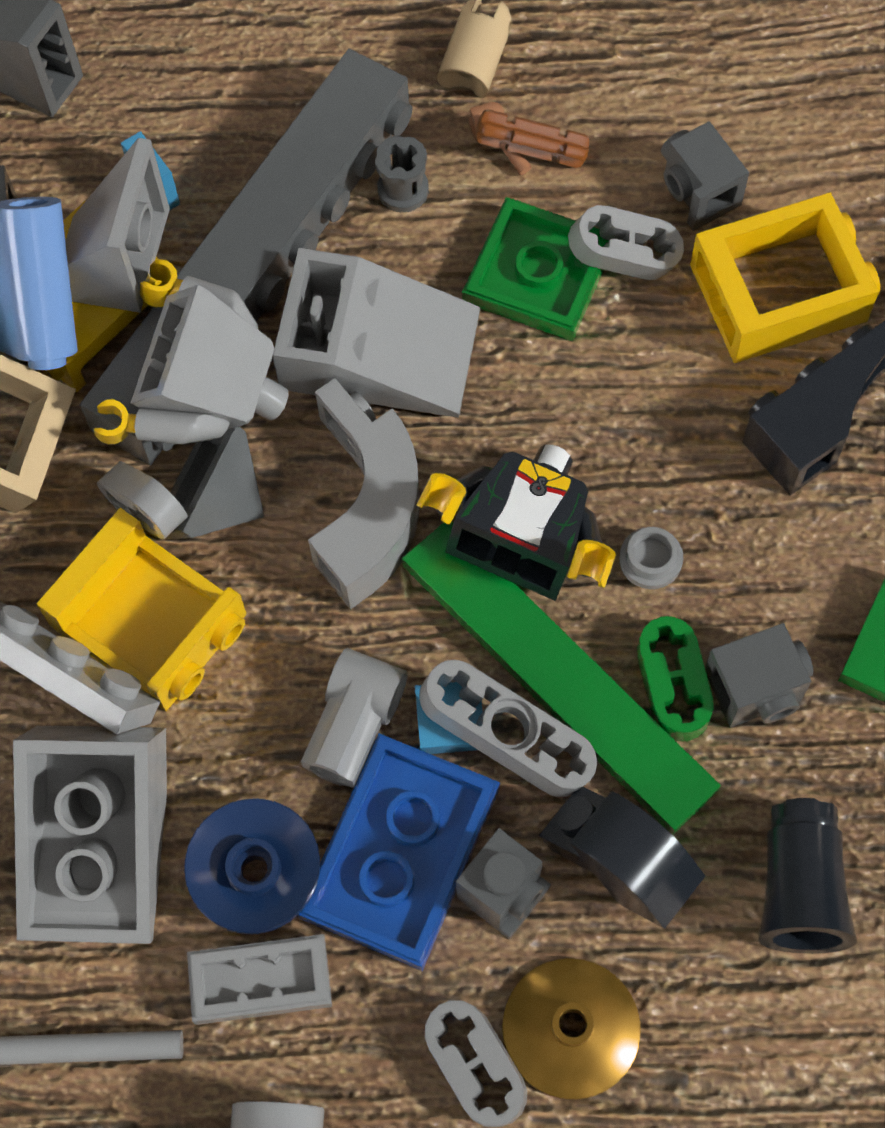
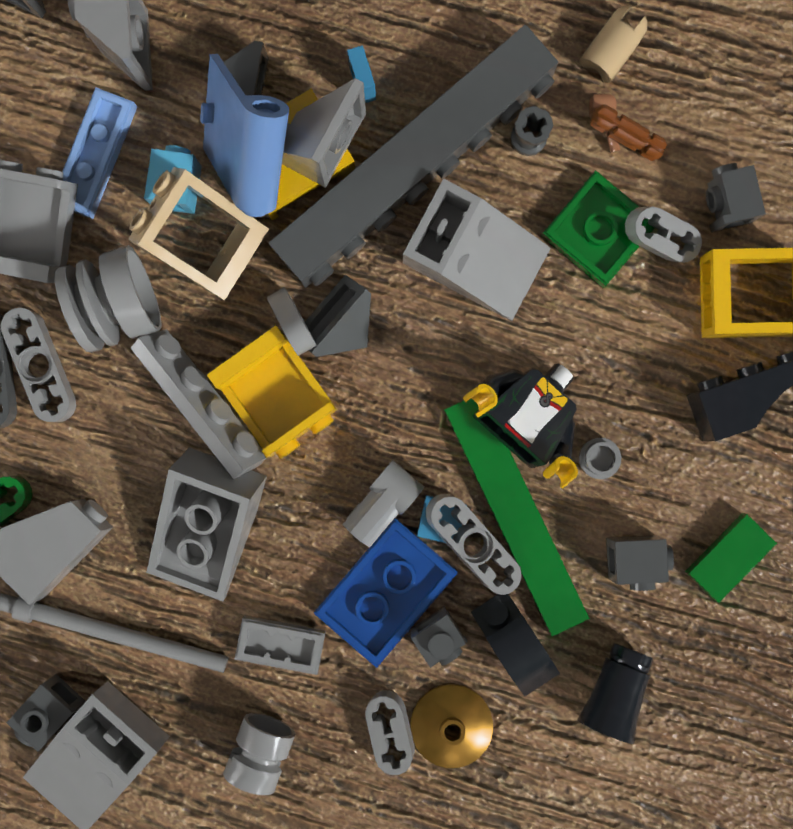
camera: 20 degrees right, 20 degrees up
(201, 366) = (354, 247): light grey torso -> none
(247, 833) = (279, 593): dark blue dish -> none
(378, 529) = (442, 380): light grey arch -> none
(689, 675) = (596, 542): green beam -> none

